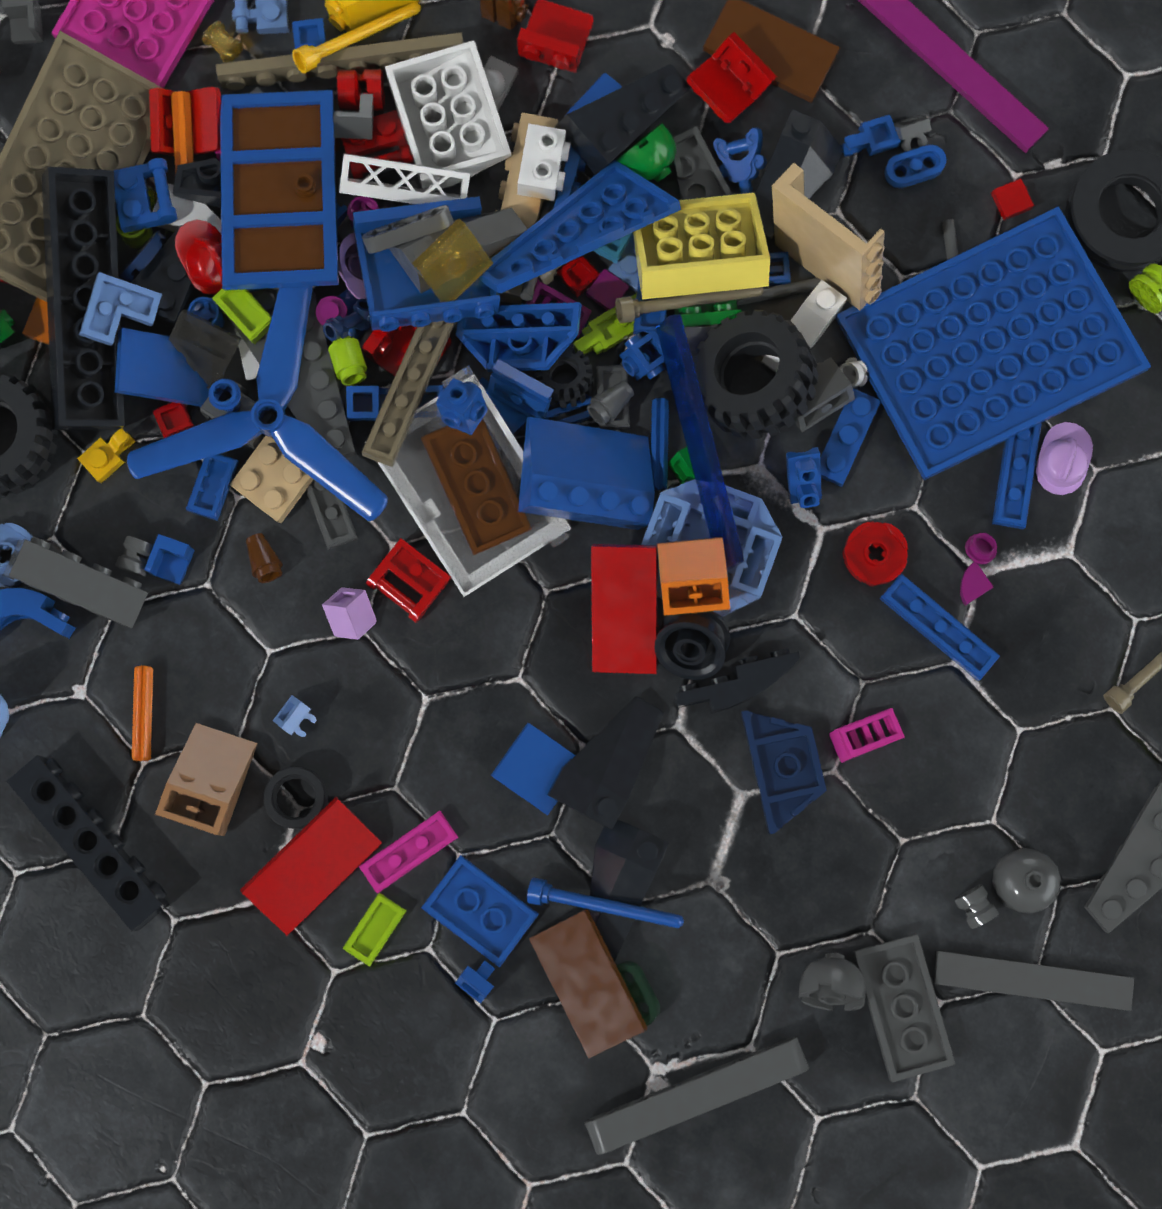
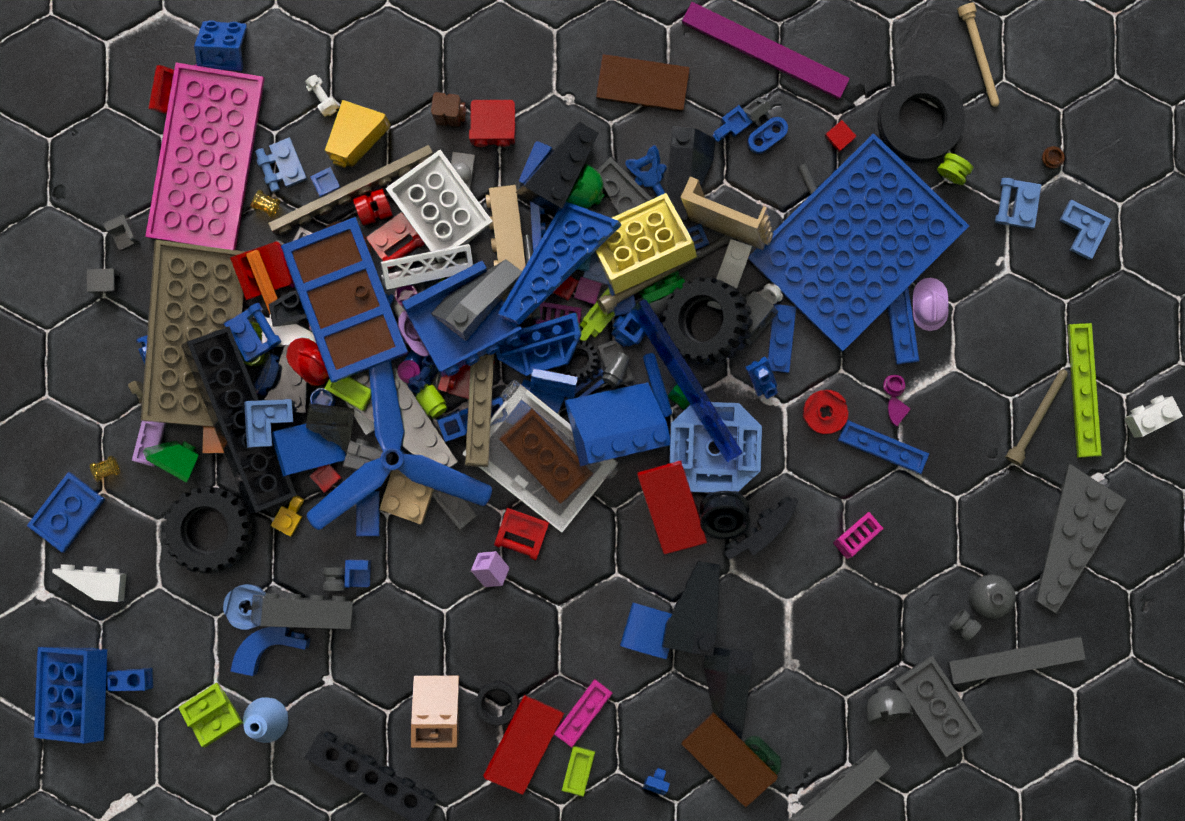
camera: 20 degrees left, 5 degrees up
(142, 713) = (375, 681): orange axle -> none
(221, 391) = (353, 455): blue cone -> none
(263, 559) = (421, 553): reddish brown cone -> none
(292, 715) = (476, 649): medium blue tile -> none
(308, 57) = (331, 200): yellow piece -> none
(356, 123) = (377, 232): dark grey panel -> none
(408, 229) = (443, 301): dark grey beam -> none
(452, 262) = (482, 317): clear yellow tile -> none
(461, 405) = (521, 411): blue brick -> none
(480, 911) = (643, 735): blue tile -> none
(542, 161) = (516, 222): white brick -> none
(542, 892) = (680, 710): blue piece -> none
(693, 576) = (712, 474): orange slope -> none
(731, 78) = (623, 117): red bracket -> none
(784, 767) = (810, 575): dark blue wing -> none

